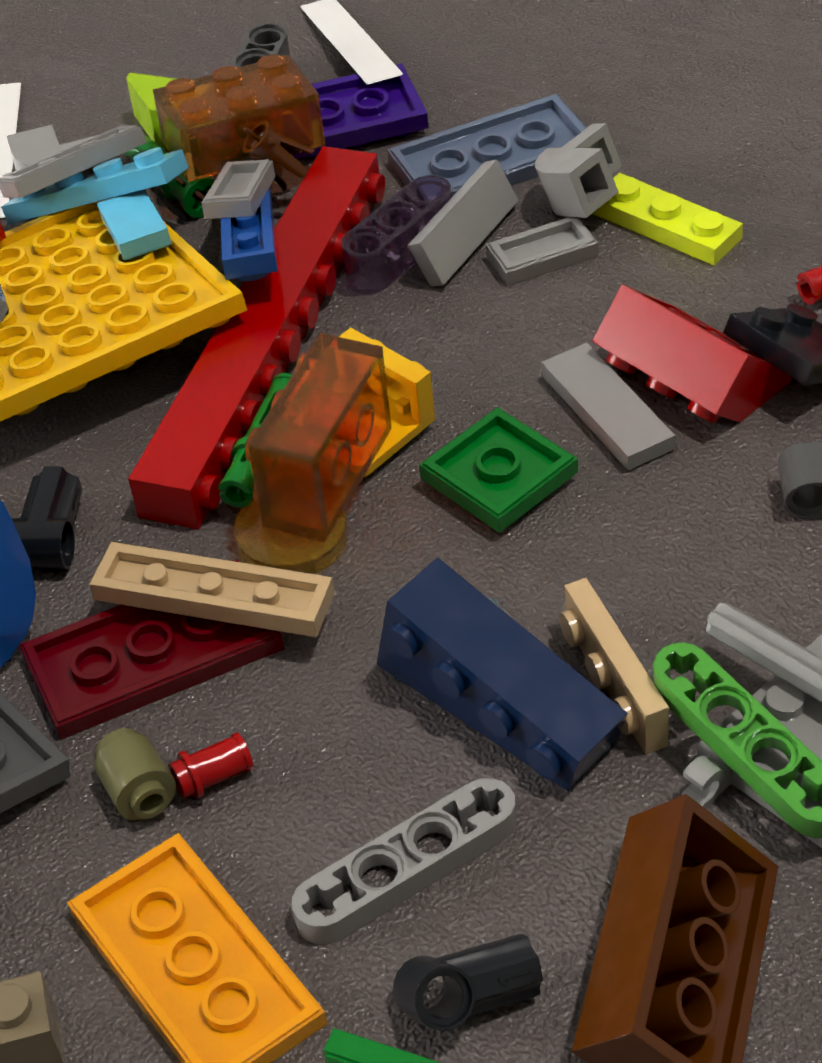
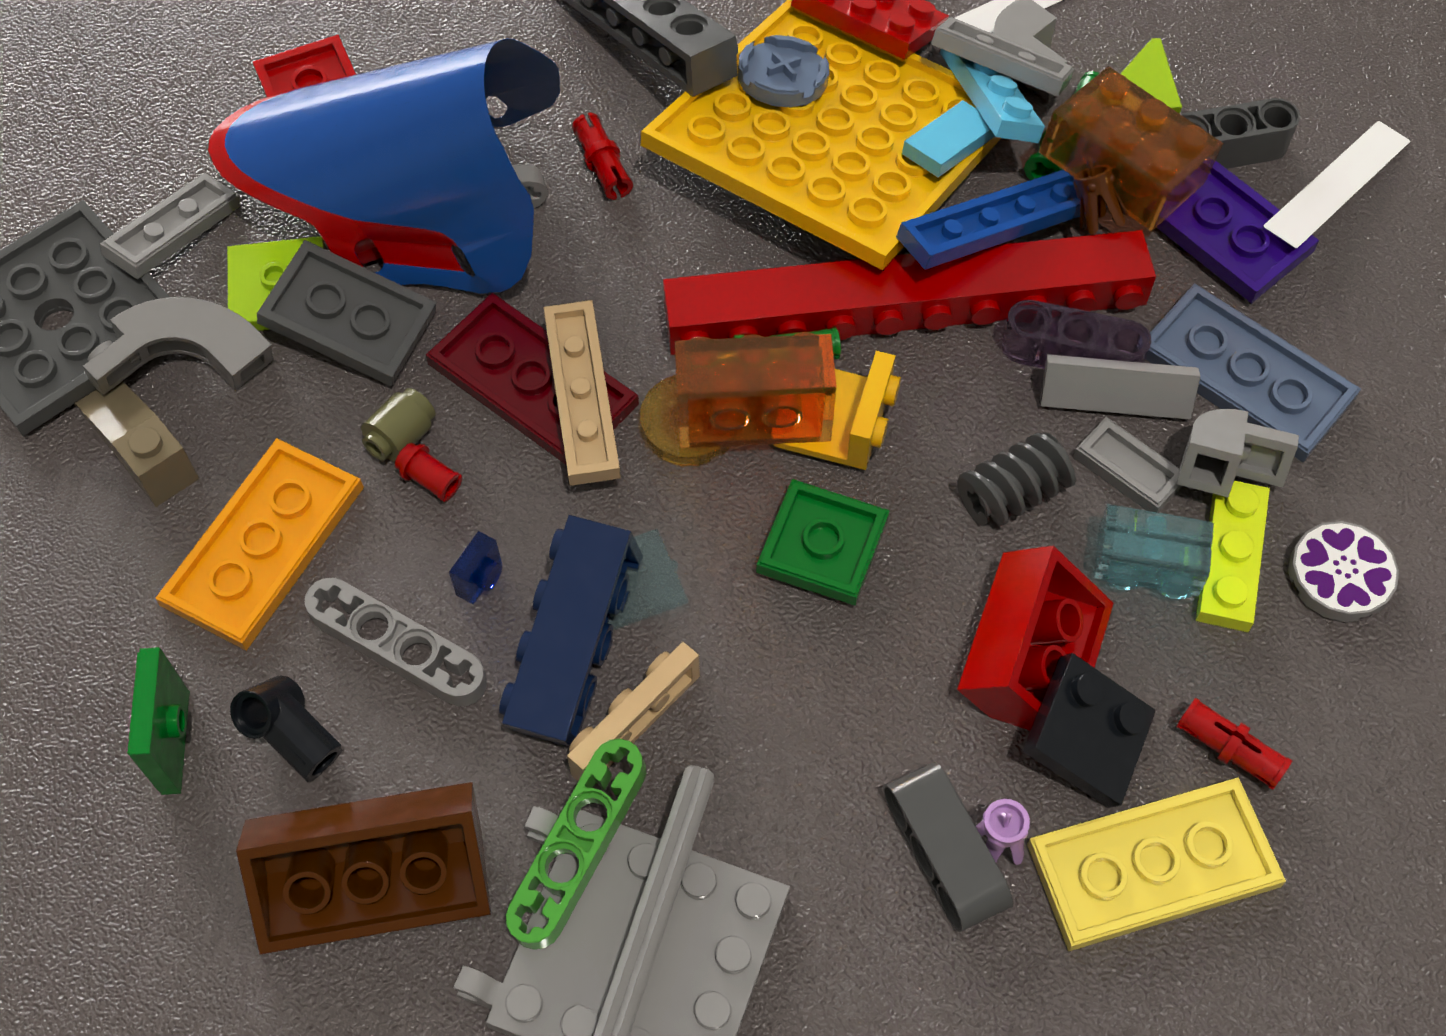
camera: 60 degrees right, 15 degrees up
(49, 519) = (603, 252): black piece -> none
(238, 189) = (1026, 193): light grey tile -> none
(365, 749) = (476, 568): none -> clear blue plate
(520, 313) = (1014, 478): none -> dark grey piece
(608, 406) = (946, 599): light grey tile -> none
(642, 252) = (1153, 551): none -> clear light blue brick
(719, 163) = (1343, 571): none -> tile

